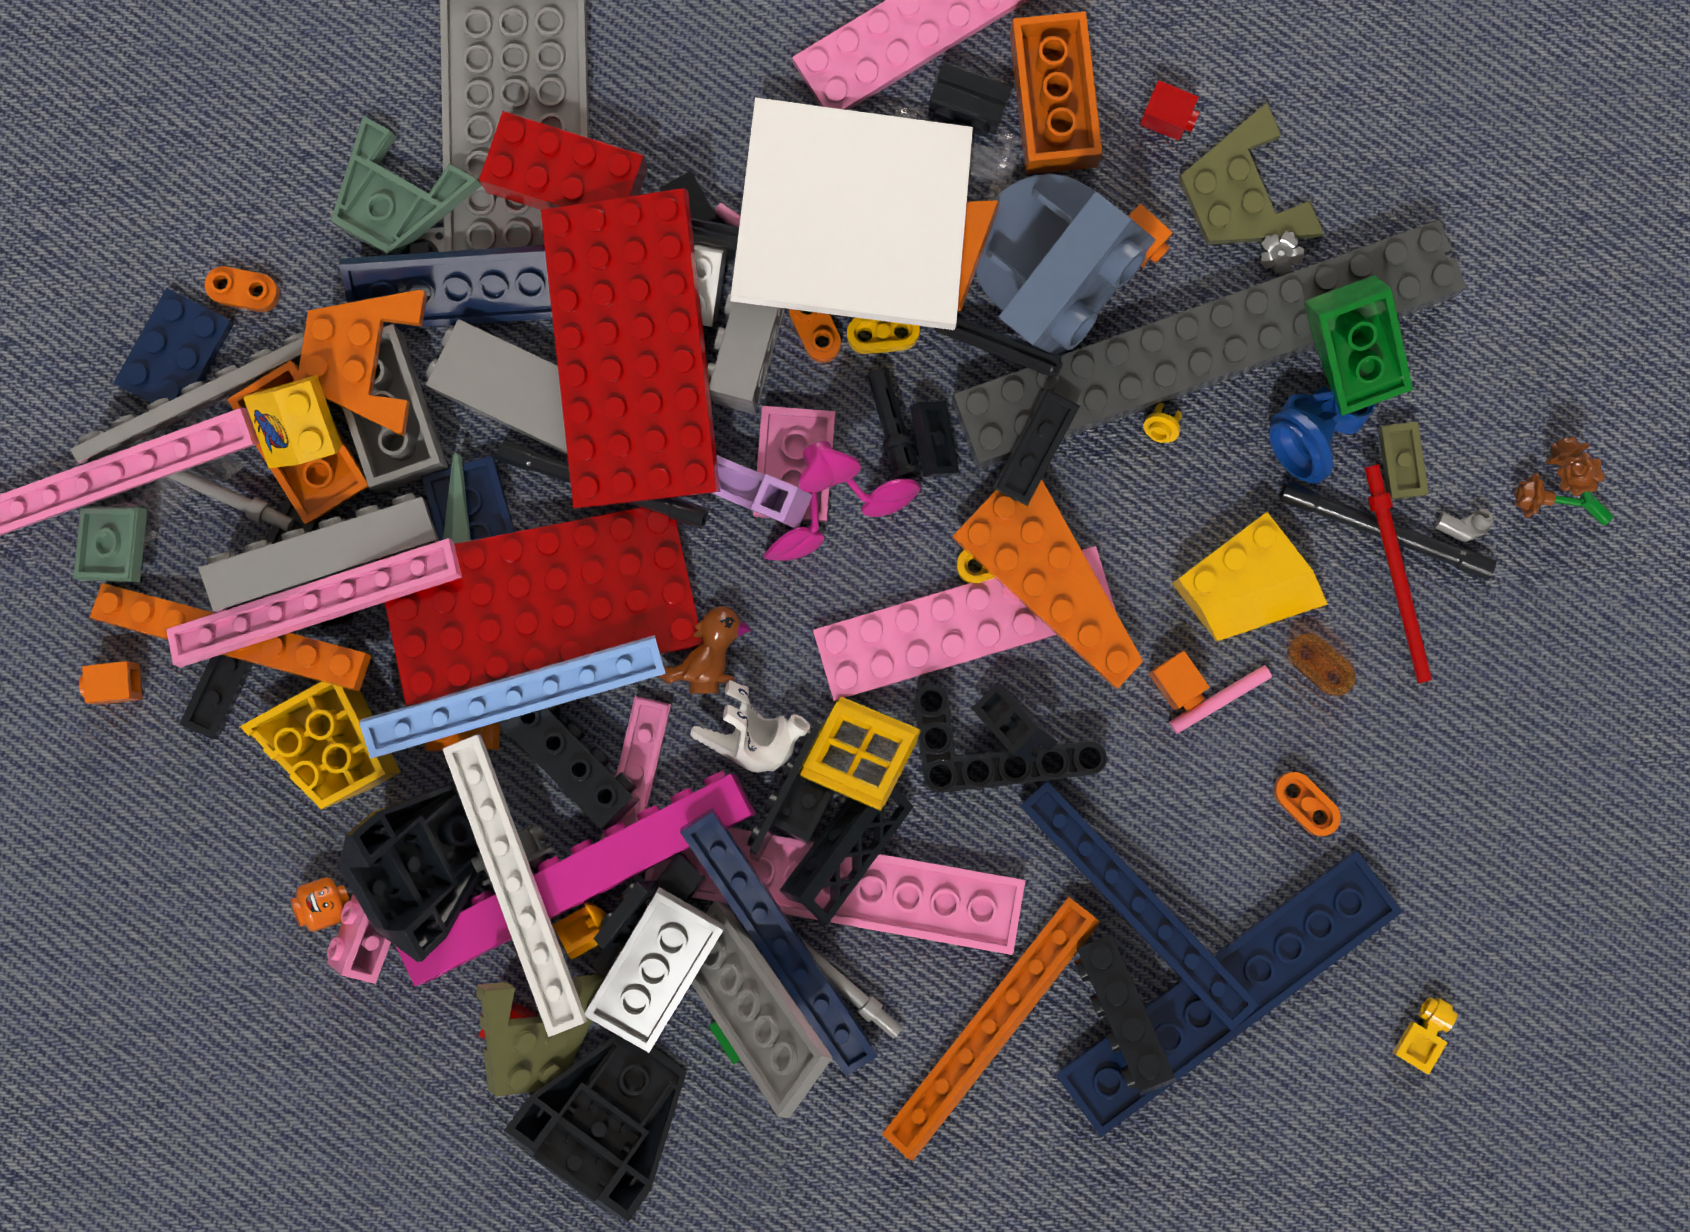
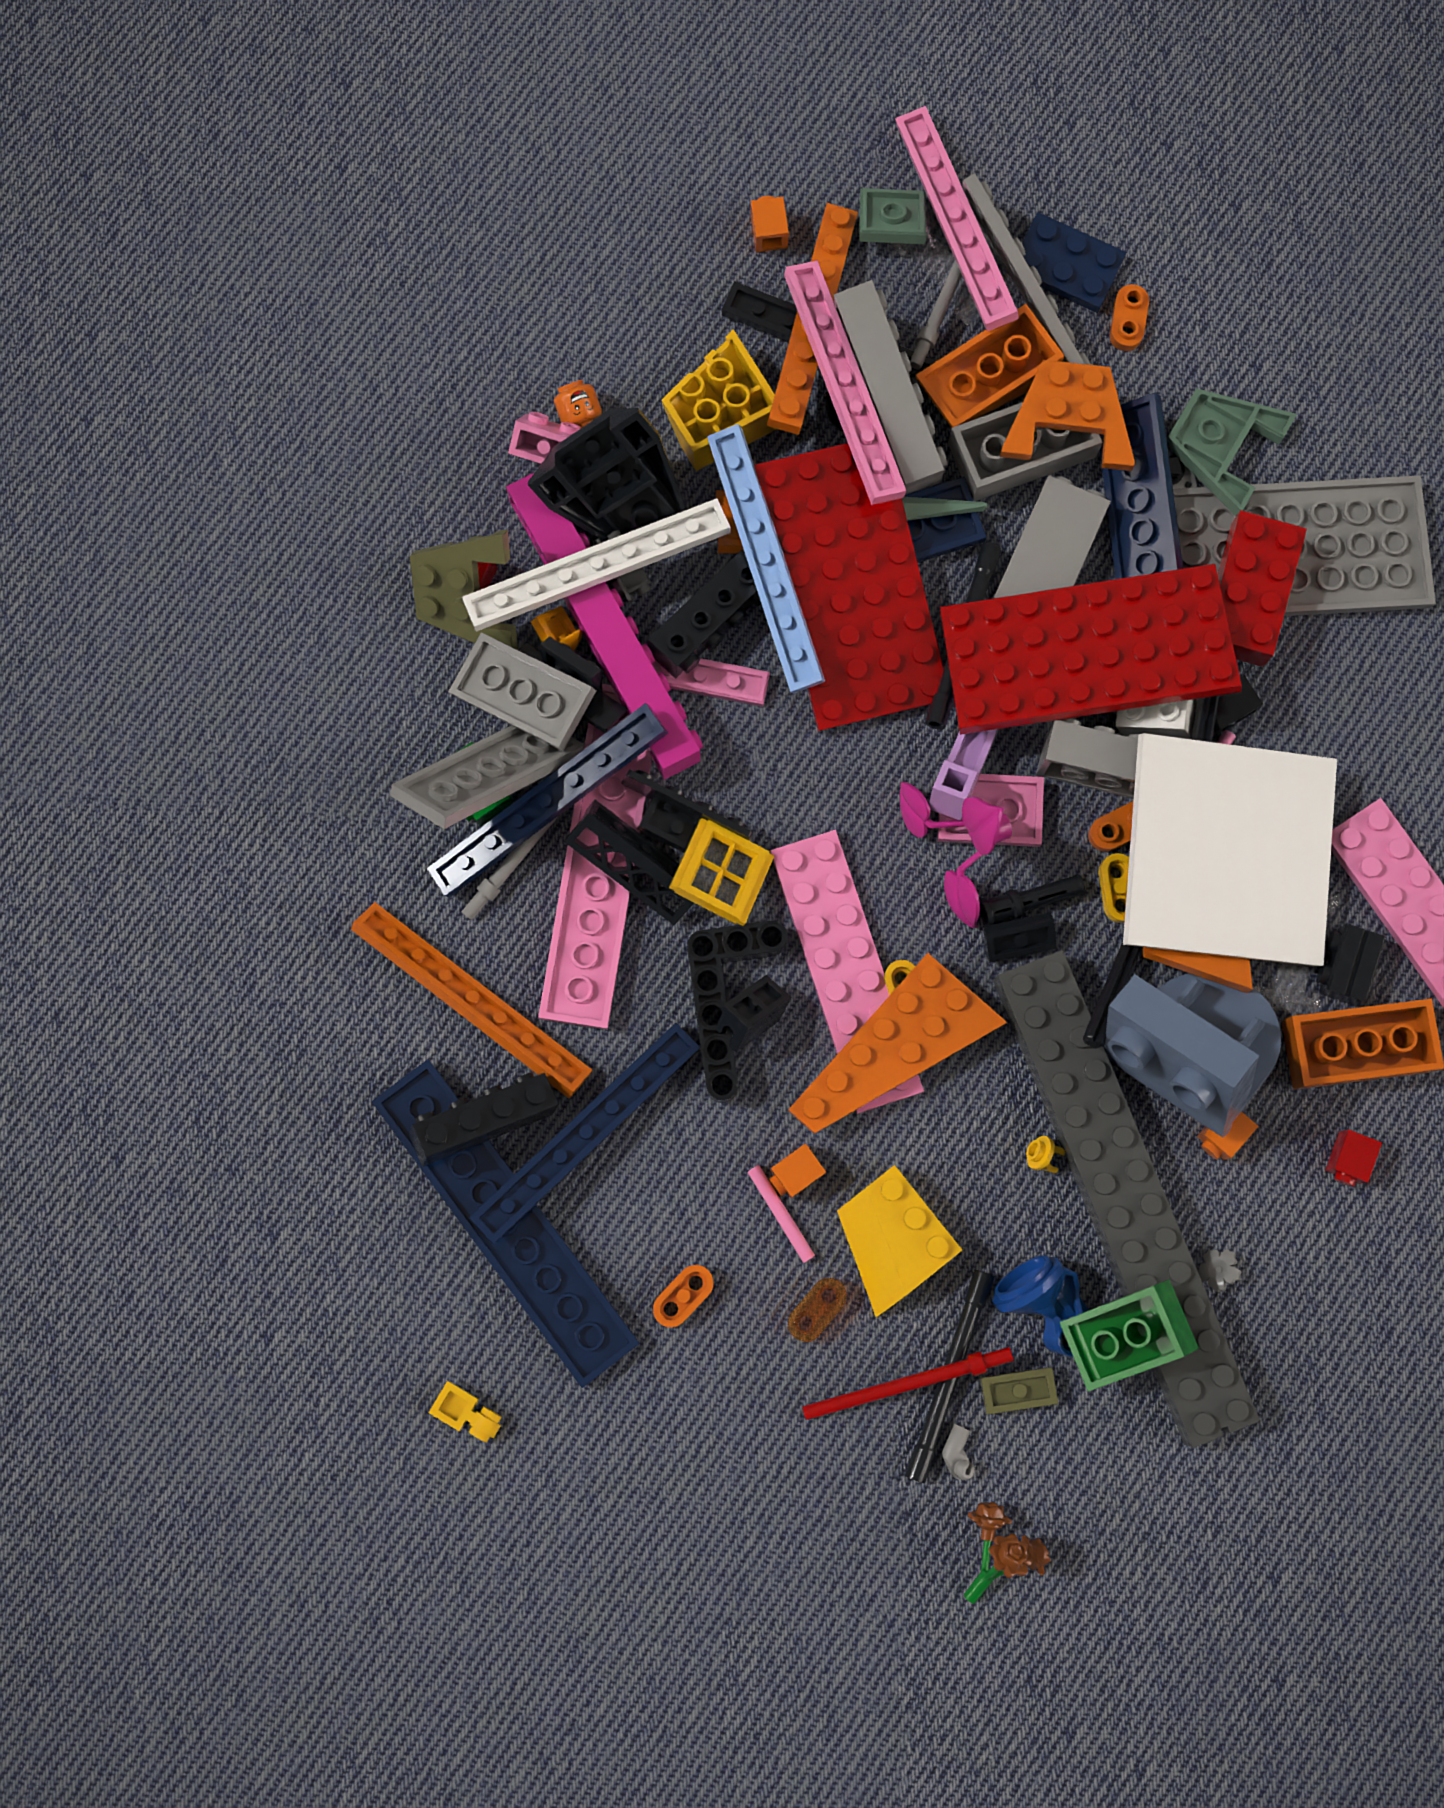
camera: 85 degrees right, 5 degrees down
(293, 423) = (1006, 358): yellow slope -> none
(604, 1123) = (386, 654): black wedge -> none
(707, 663) = (801, 734): dark orange animal -> none
(756, 741) = (731, 778): white piece -> none
(1036, 446) = (1015, 1026): black tile -> none
(1230, 195) = (1273, 1220): olive wing -> none

